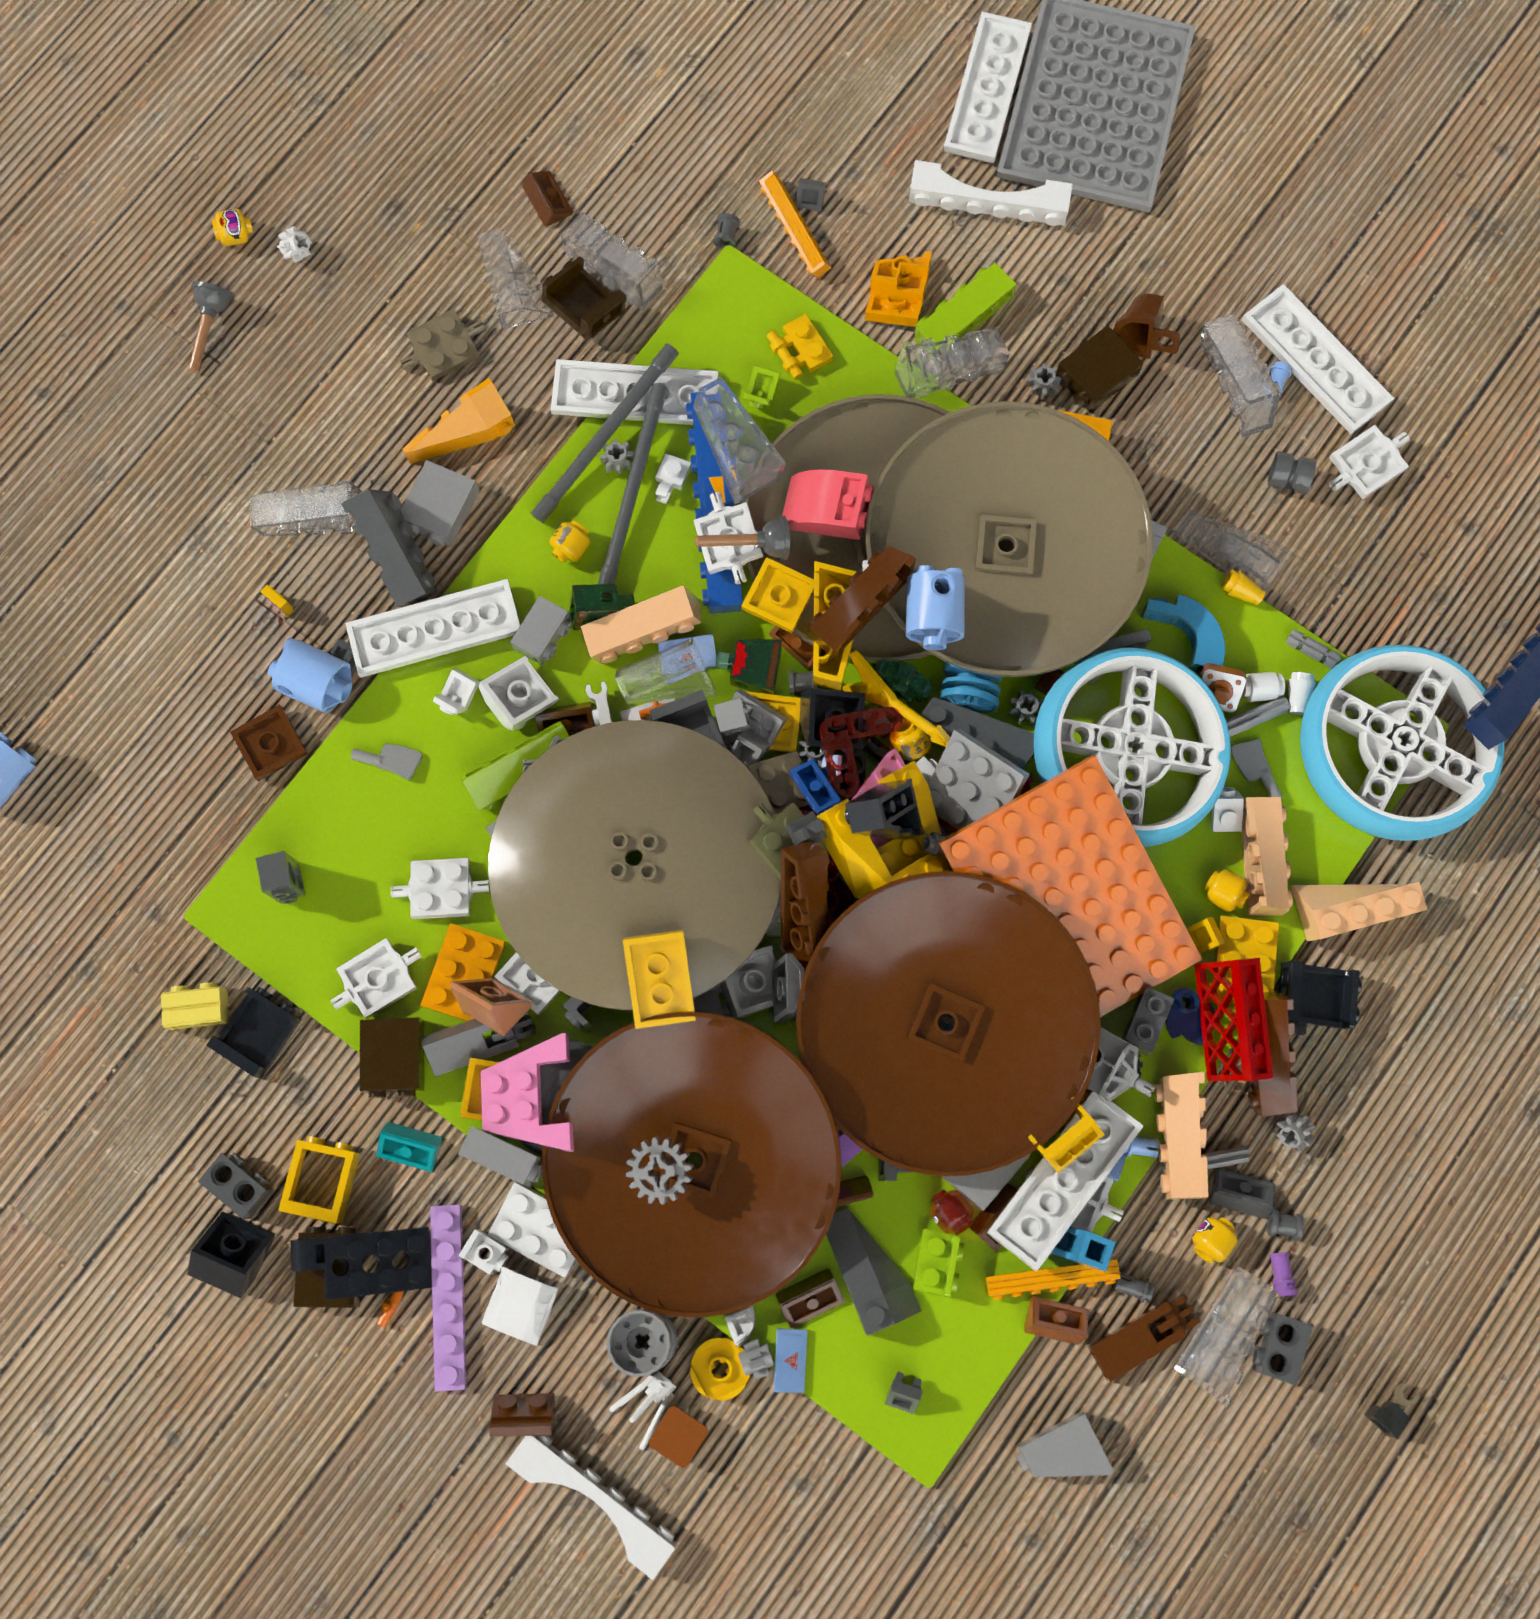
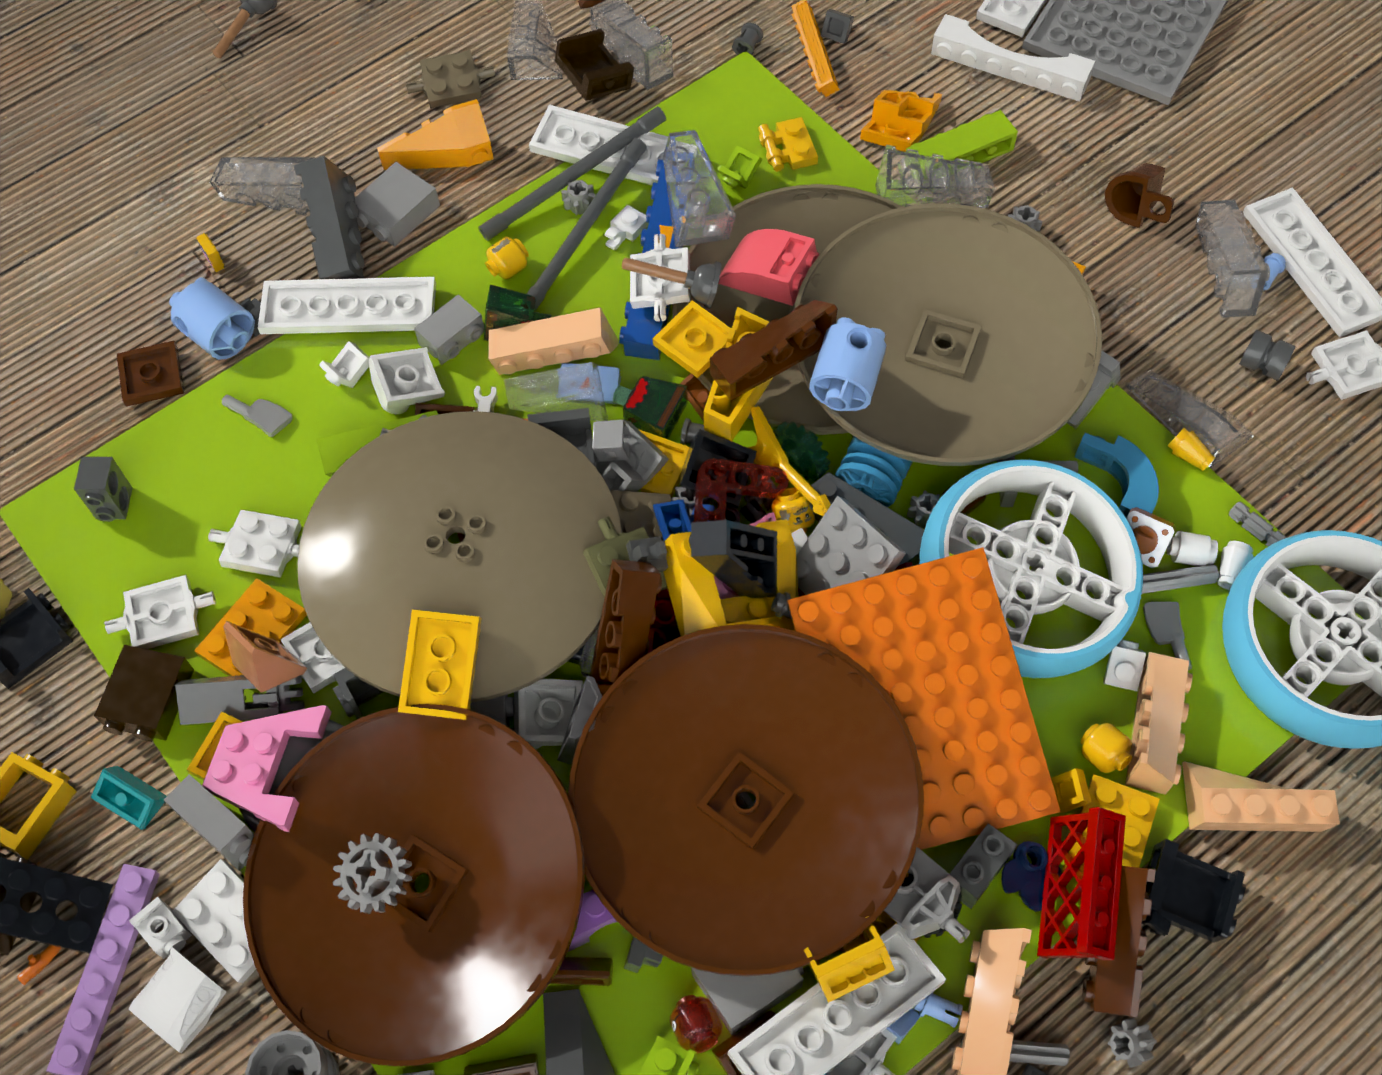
camera: 15 degrees right, 15 degrees down
(1098, 369) = (1084, 222): dark brown brick -> none

